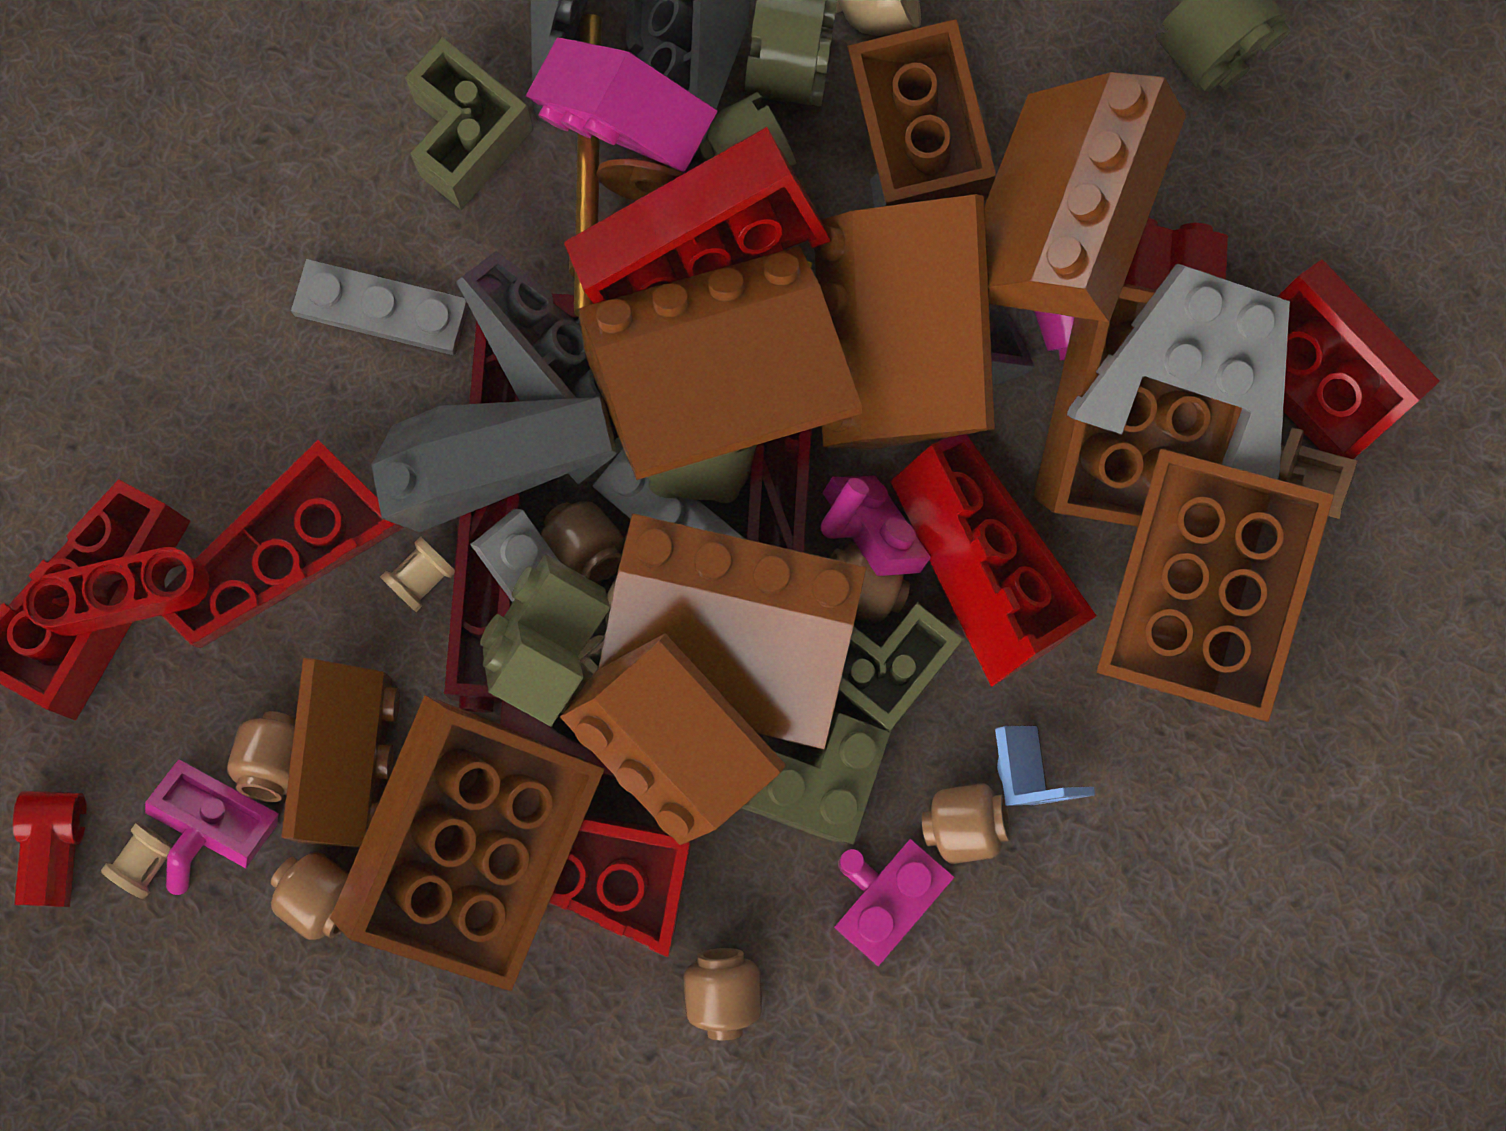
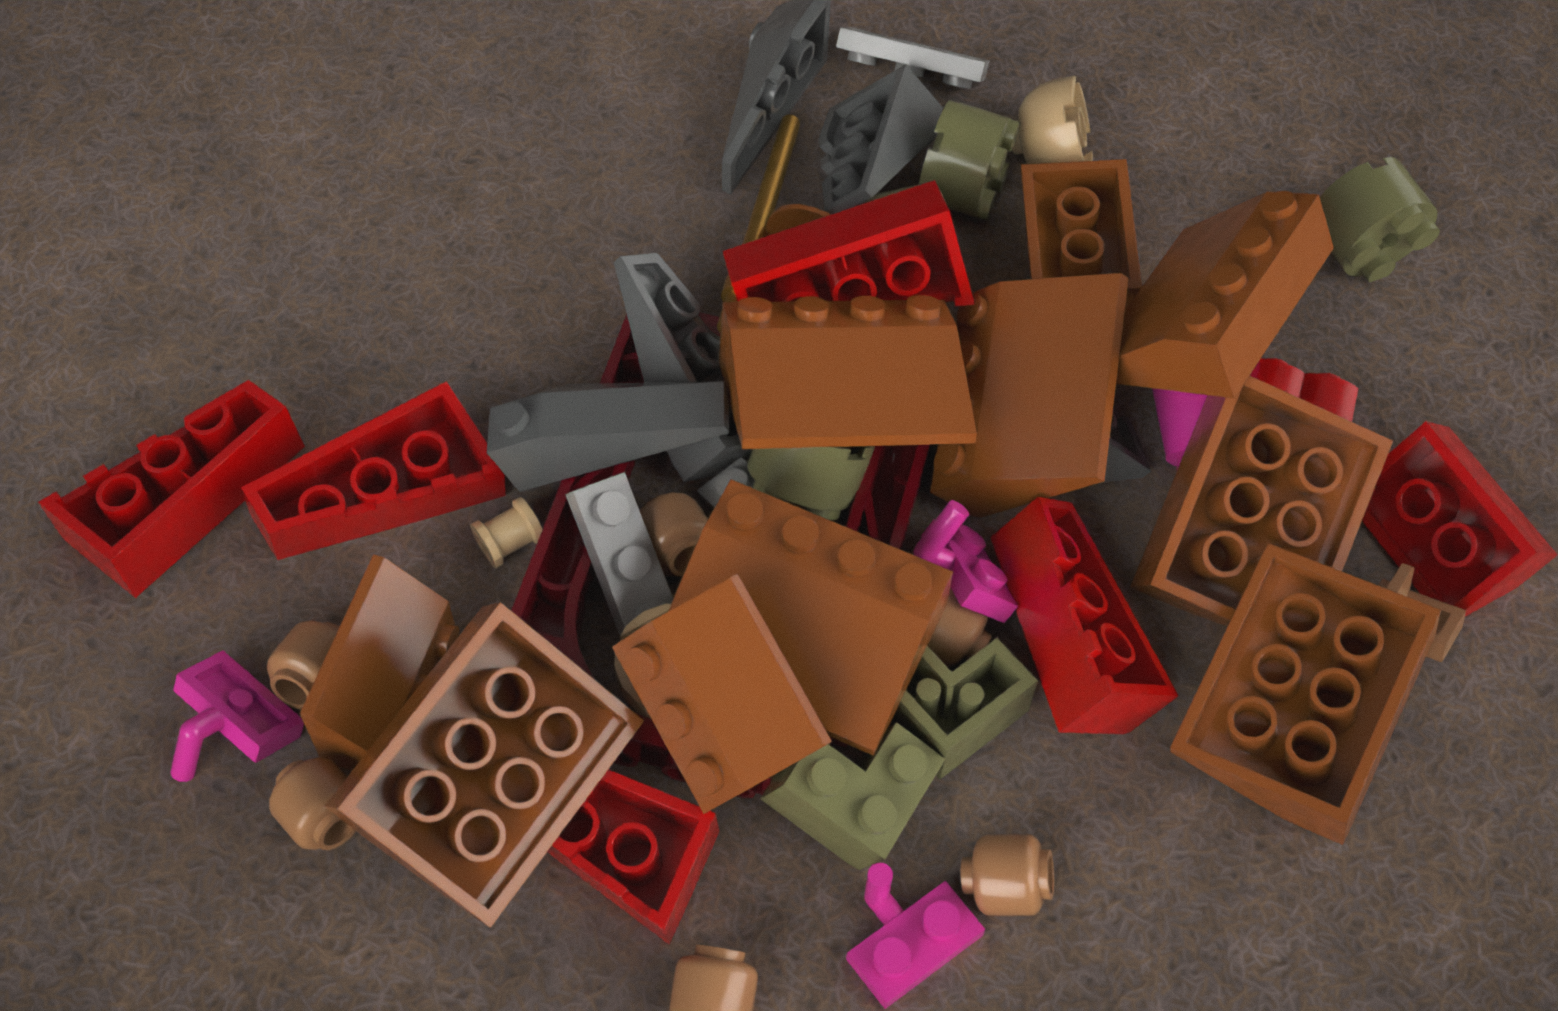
camera: 10 degrees right, 20 degrees down
(47, 834) = (70, 691): red piece -> none
(90, 583) = (189, 449): red beam -> none
(138, 861) = (150, 735): tan bush -> none
(380, 307) = (537, 307): light grey plate -> none
(475, 127) = (660, 169): olive brick -> none
(537, 643) = (616, 583): olive brick -> none
(620, 102) = (804, 154): dark pink wedge -> none
(1022, 769) = (1076, 839): light blue bracket -> none
(1210, 342) = (1331, 448): light grey wing -> none

